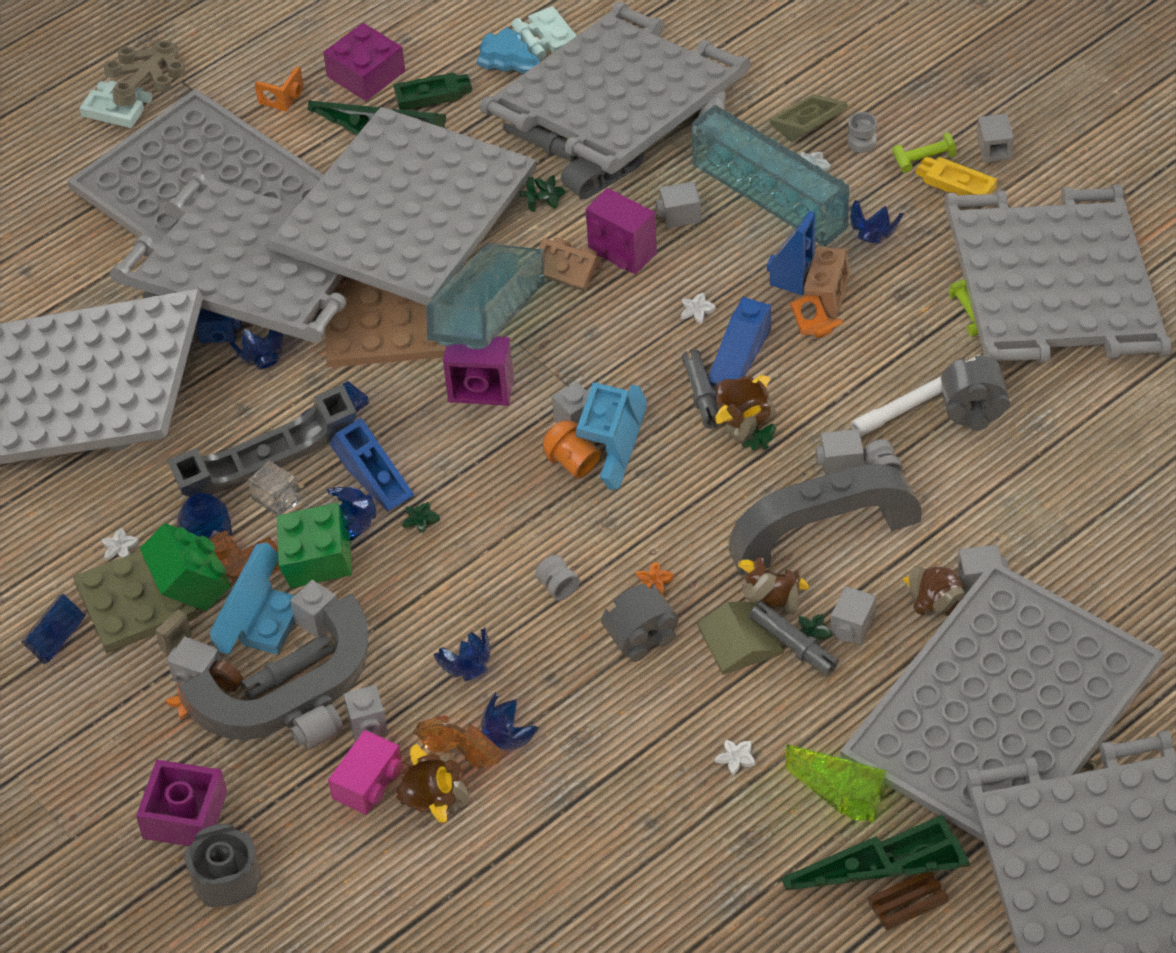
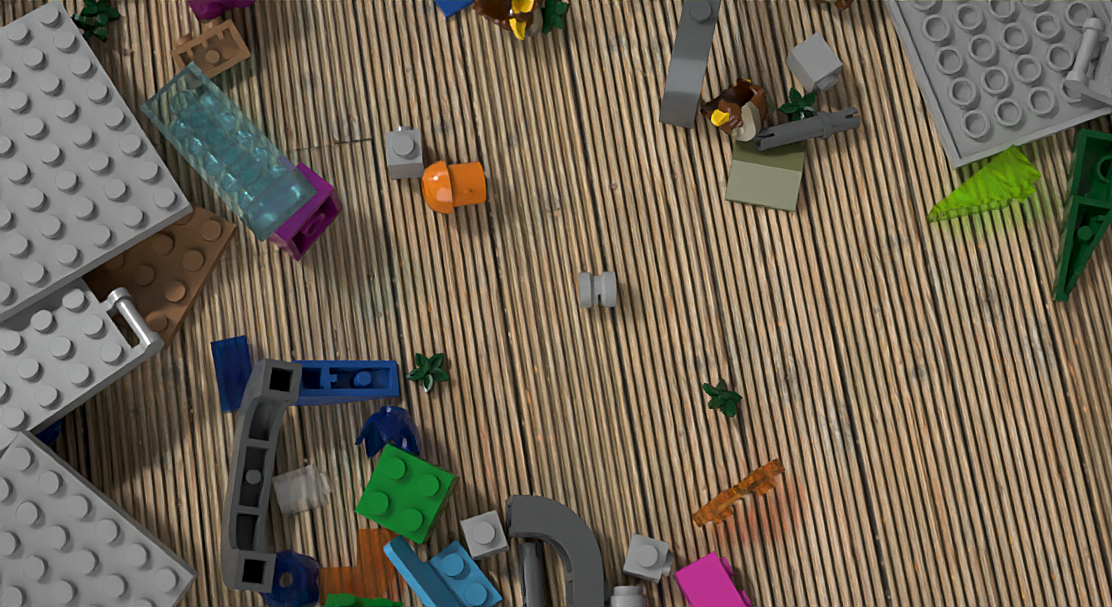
camera: 60 degrees left, 25 degrees up
(260, 351) = (107, 408): clear blue piece -> none
(433, 784) = (771, 543): reddish brown hair -> none
(471, 657) = (644, 427): clear blue piece -> none
(499, 727) = (747, 442): clear blue piece -> none
(530, 701) = (722, 398): none -> dark green plant
(613, 419) = (455, 135): dark azure plate -> none
(640, 621) = (710, 248): dark grey brick -> none
(655, 577) = (650, 205): orange plant -> none
(704, 395) = (469, 30): dark grey pin -> none
(736, 756) = (895, 256): white plant -> none

